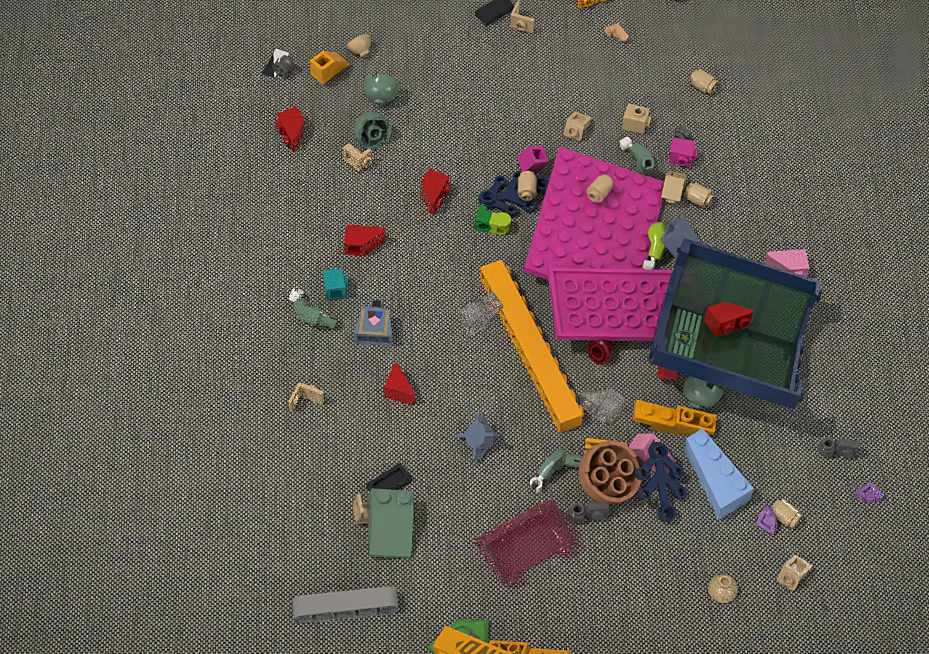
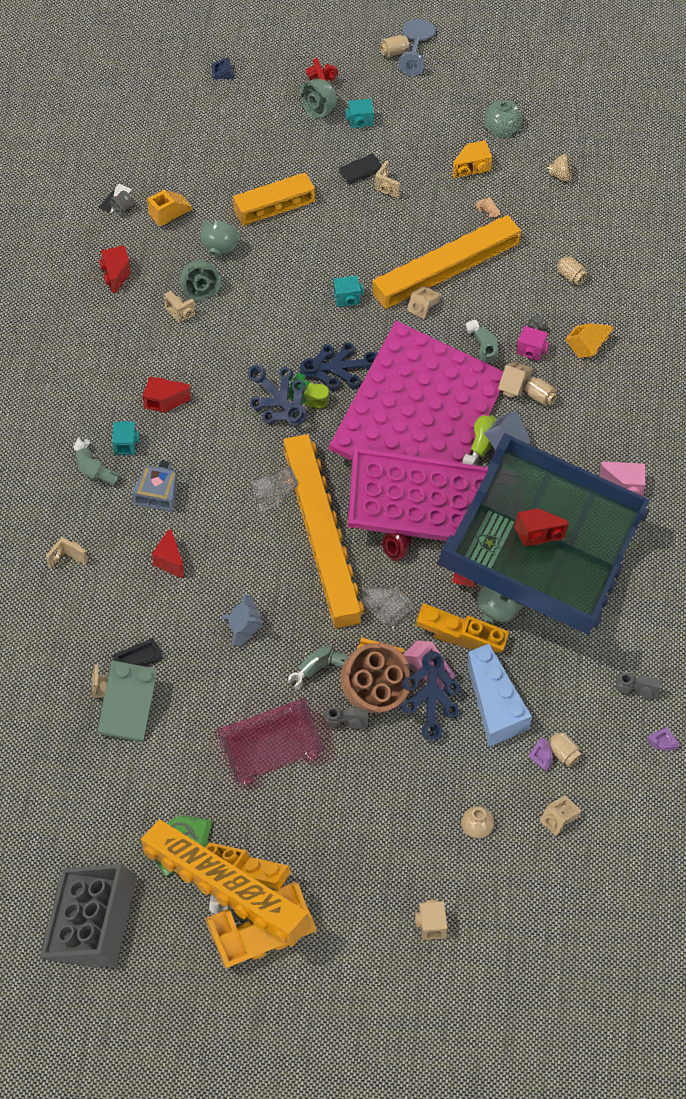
camera: 10 degrees right, 0 degrees up
(345, 604) = (60, 781): light grey beam -> none
(360, 45) = (207, 189): tan brick -> none
(422, 47) = (274, 198): none -> light orange brick
(434, 188) = (254, 349): red slope -> none
(468, 230) = (280, 397): none -> dark blue plant
(507, 124) = (347, 291): none -> teal brick
(527, 186) = (353, 358): tan brick -> none
(533, 159) = (366, 331): dark pink brick -> none
(590, 86) = (446, 261): none -> light orange brick
(599, 188) = (429, 370): tan brick -> none
(636, 118) = (489, 301): tan brick -> none
(731, 142) = (588, 338): none -> light orange slope

